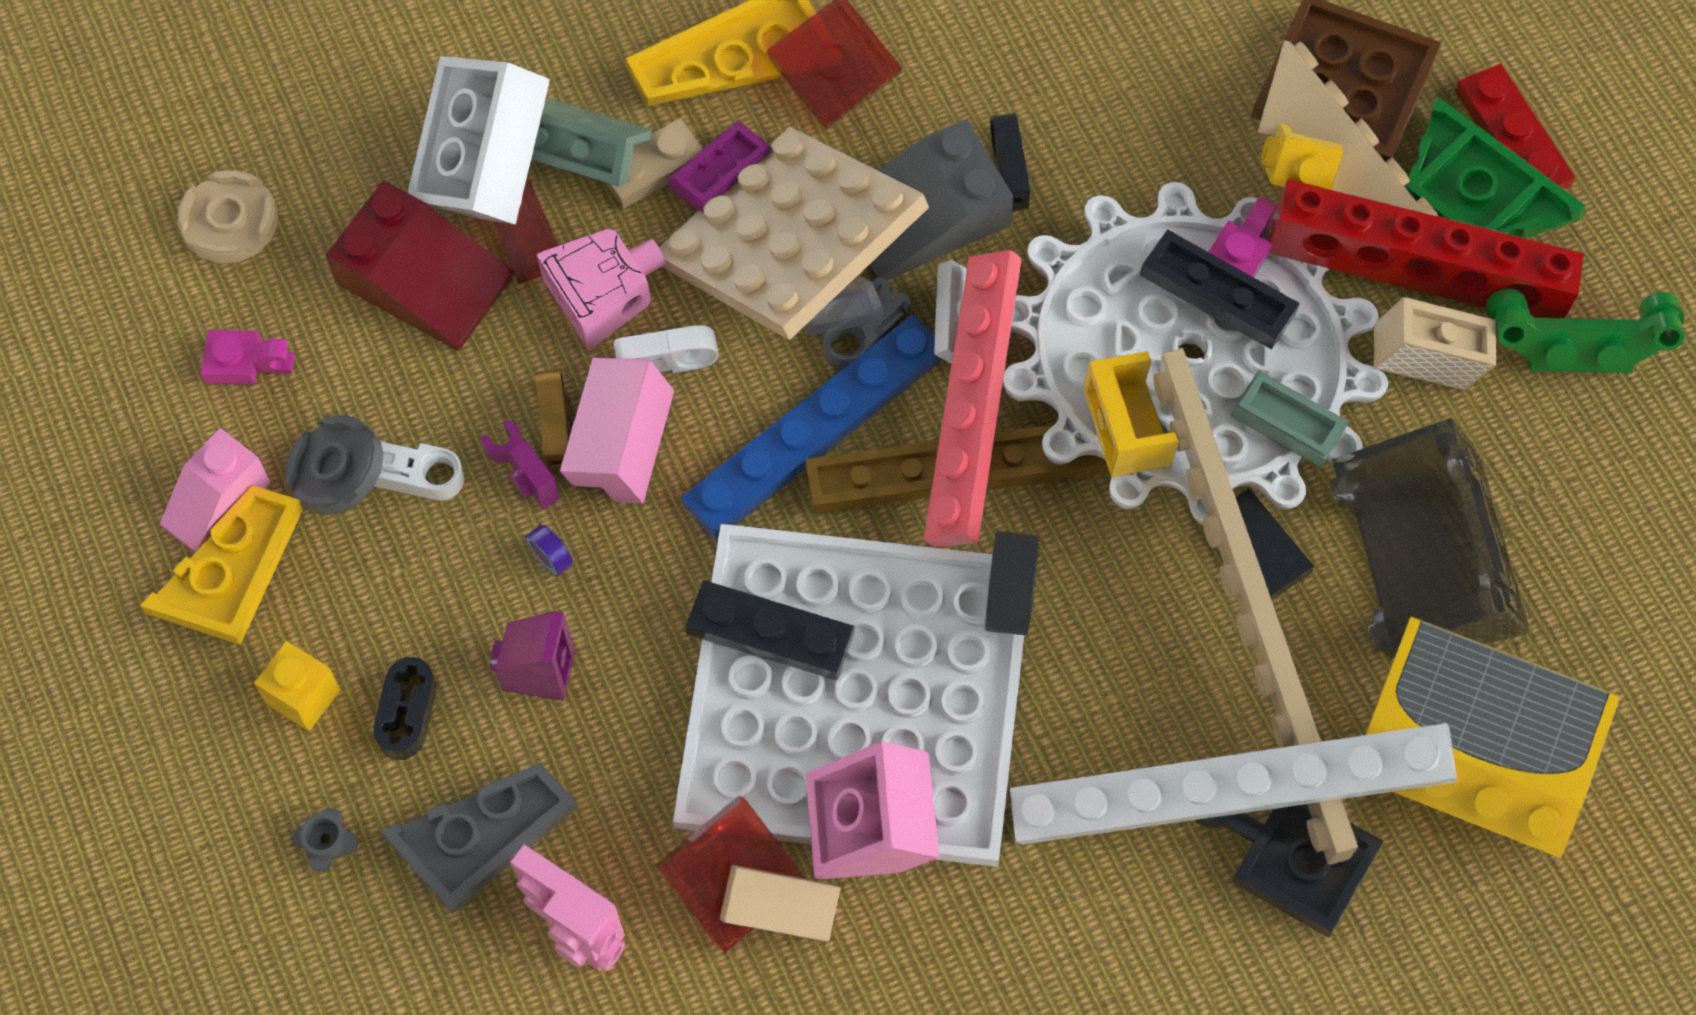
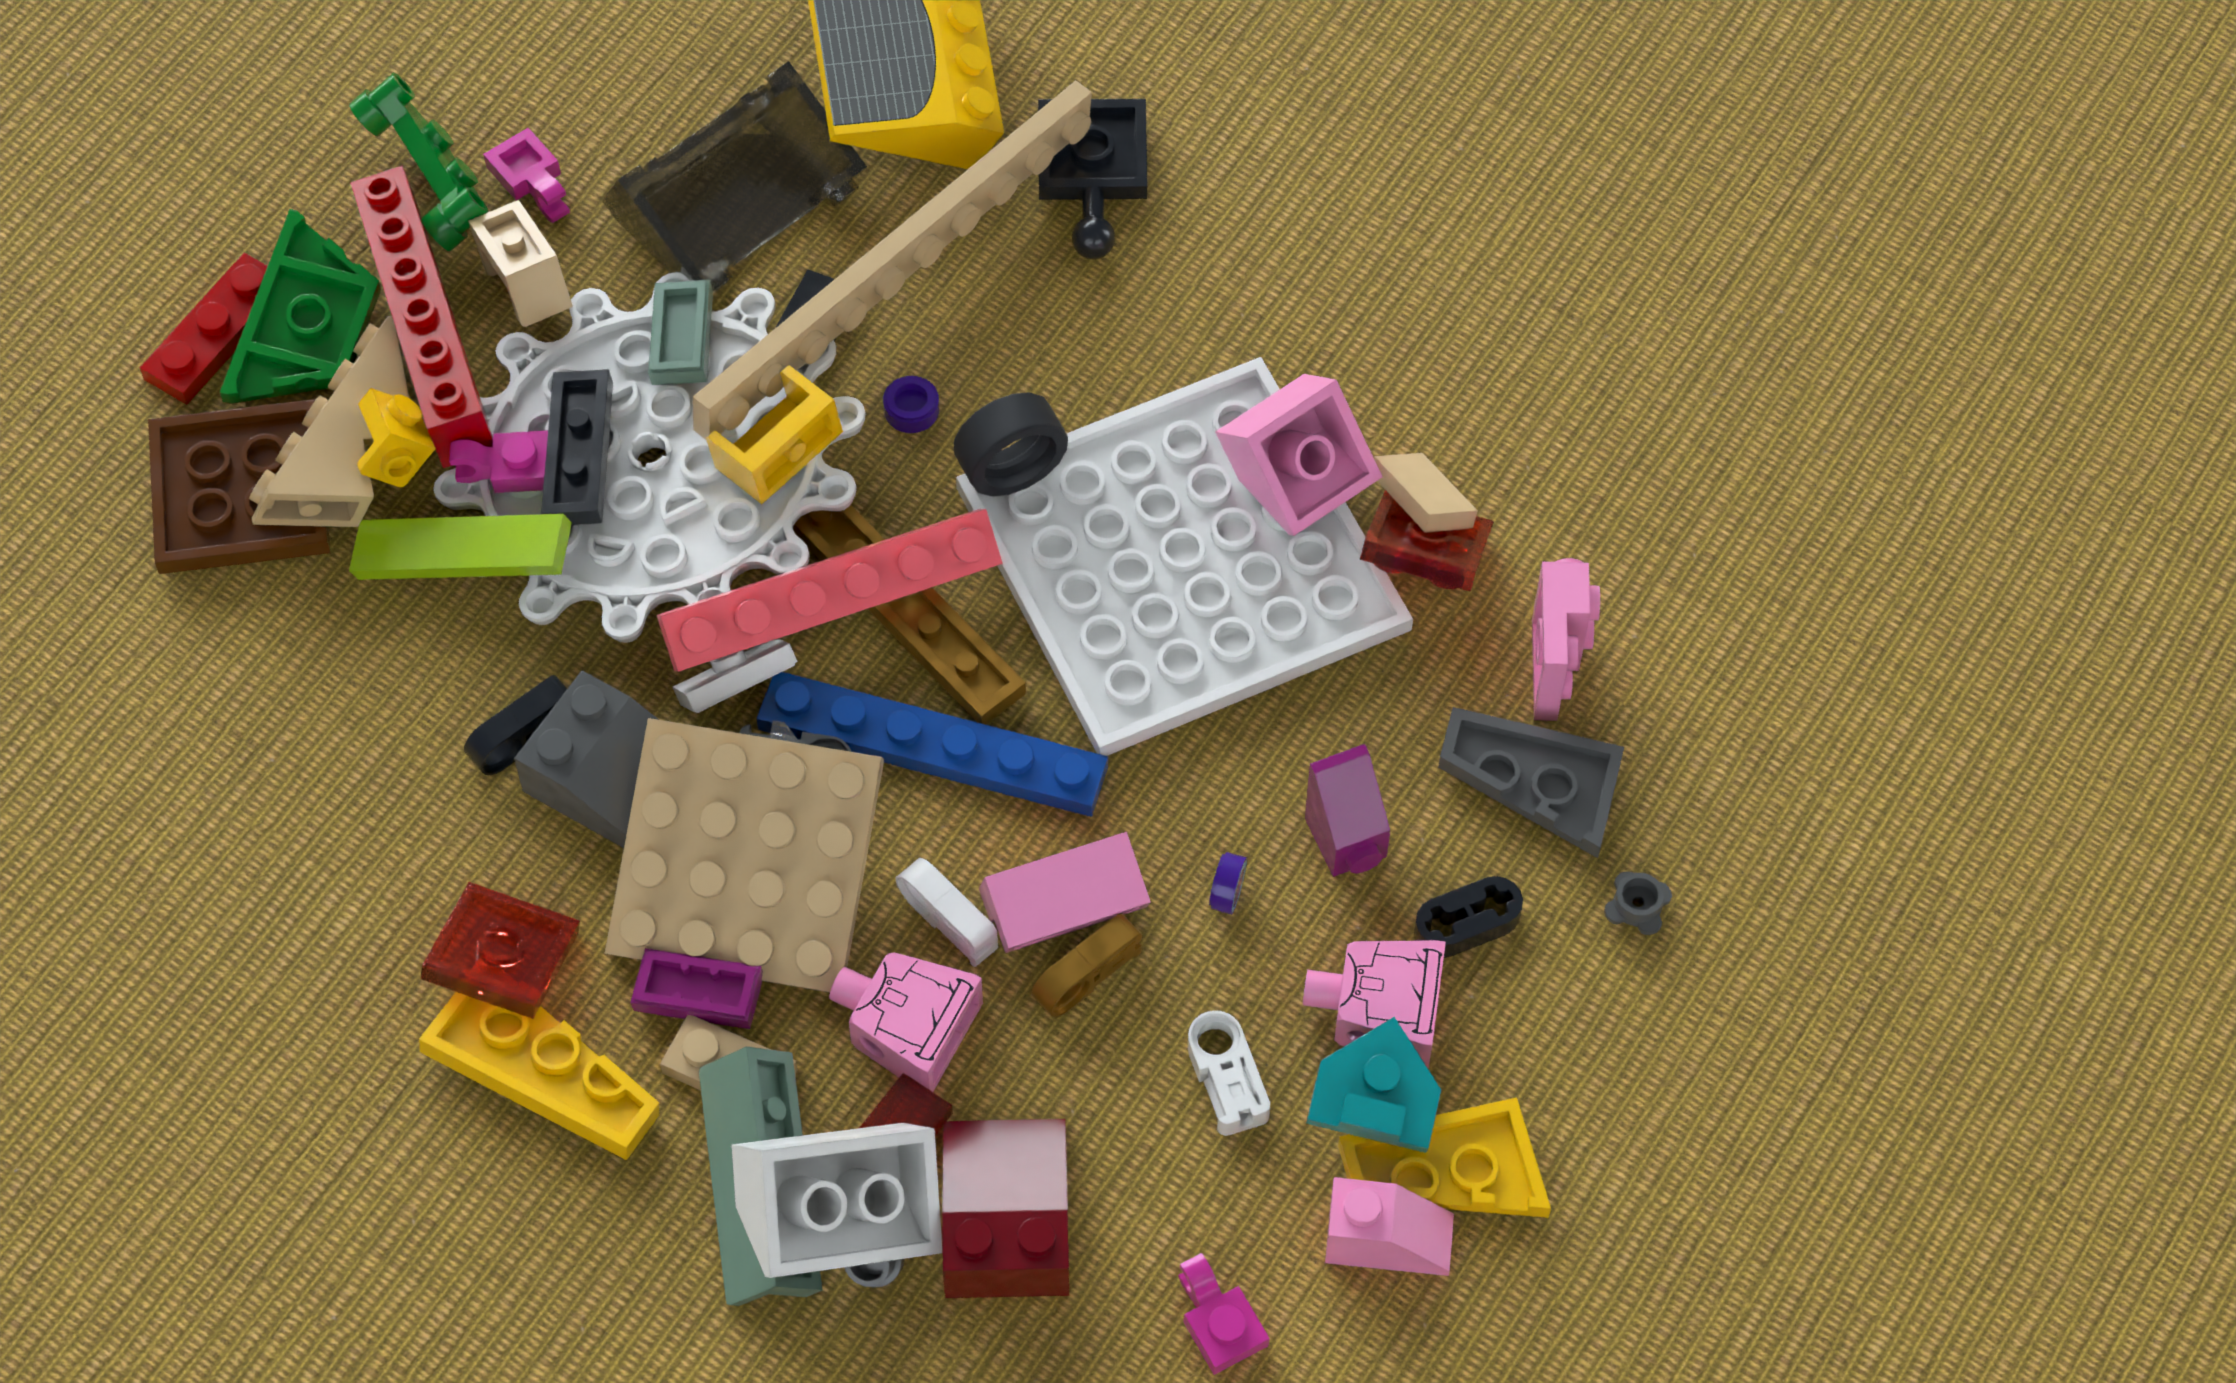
camera: 125 degrees left, 5 degrees down
(297, 686) = (1523, 1008): yellow brick -> none
(298, 528) = (1377, 1090): none -> teal plate
(334, 465) = (1268, 1138): dark grey tile -> none
(379, 599) = (1380, 984): none -> bright pink torso
(529, 472) = (1162, 949): magenta plate -> none
(770, 630) = (1181, 638): black plate -> none
(1135, 578) = (911, 404): none -> dark purple tile
(1183, 180) = (460, 547): none -> lime tile
(1234, 784) = (1084, 196): white plate -> none
(1545, 408) = (527, 167): none -> dark pink plate

